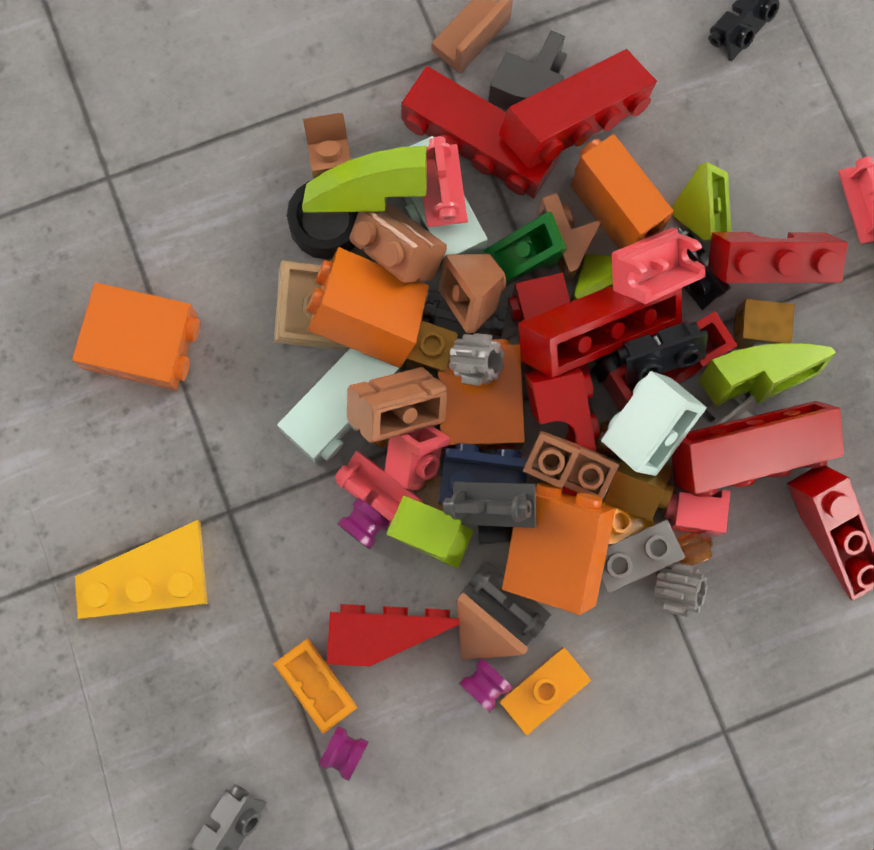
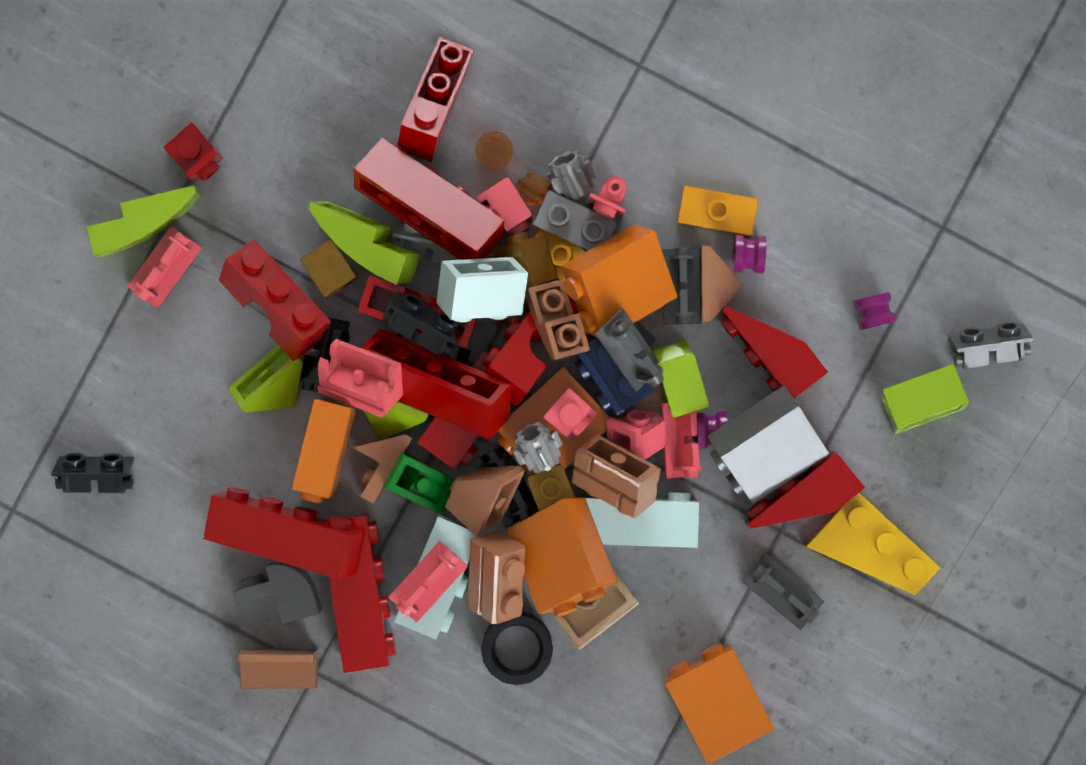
camera: 125 degrees left, 10 degrees up
(177, 469) = (784, 592): none -> dark grey hinge
(230, 731) = (924, 399): none -> lime hinge
(233, 569) = (816, 492): none -> red slope
(310, 556) = (766, 445): none -> brick
(315, 685) = (846, 368): light orange plate -> none
(326, 142) = (465, 690): nougat slope -> none
(368, 181) = (474, 633): lime slope -> none
(481, 409) = (570, 414): none -> coral brick
(636, 603) = (609, 198): none -> coral hinge
(753, 544) = (494, 150): none -> clear orange plate

